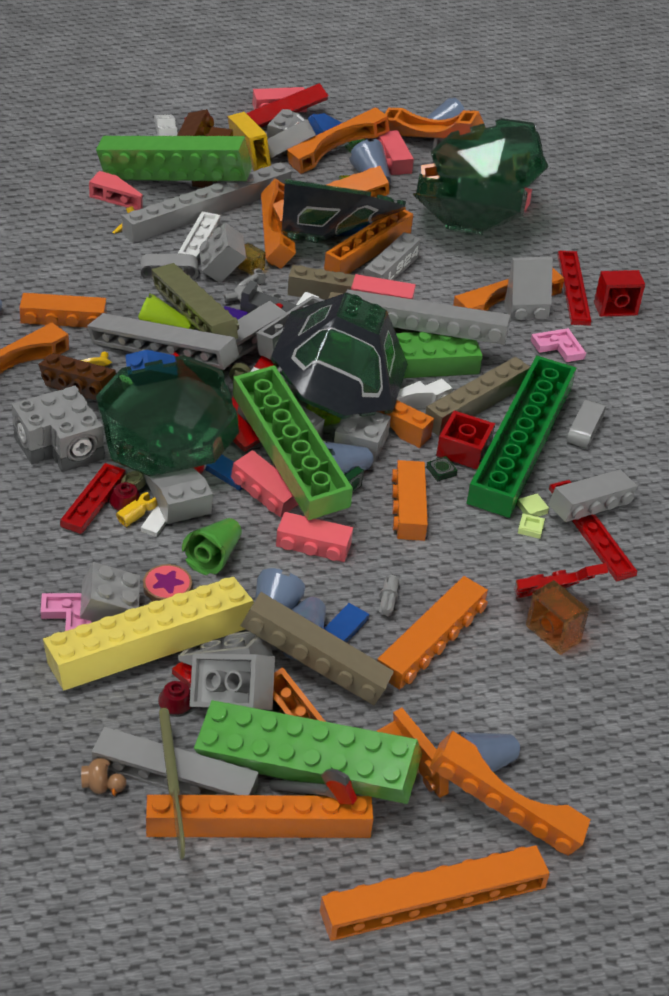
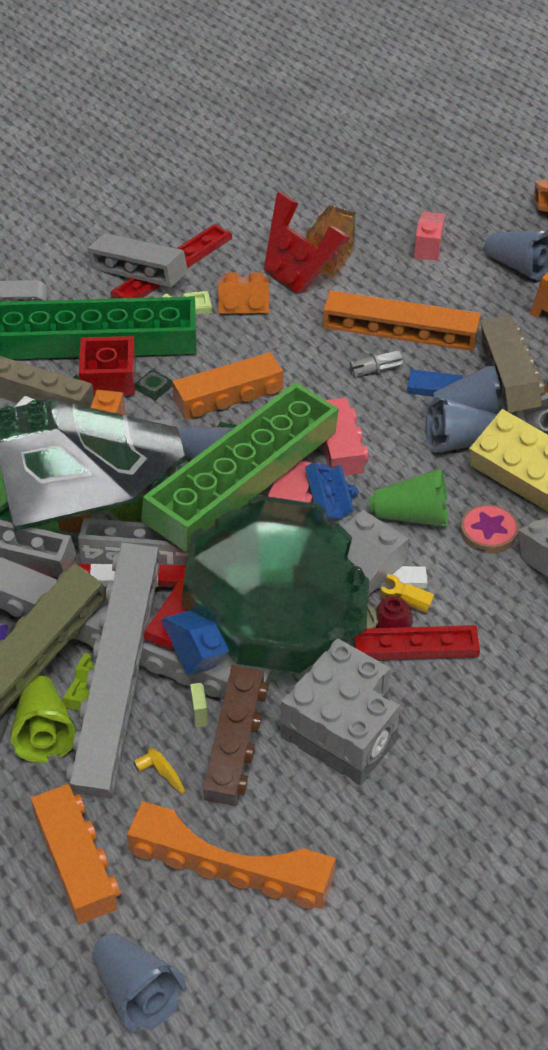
camera: 110 degrees left, 5 degrees up
(256, 505) = (331, 490): none -> blue slope
(530, 548) = (243, 294): none -> orange bracket
(550, 706) = (429, 236): none -> coral slope

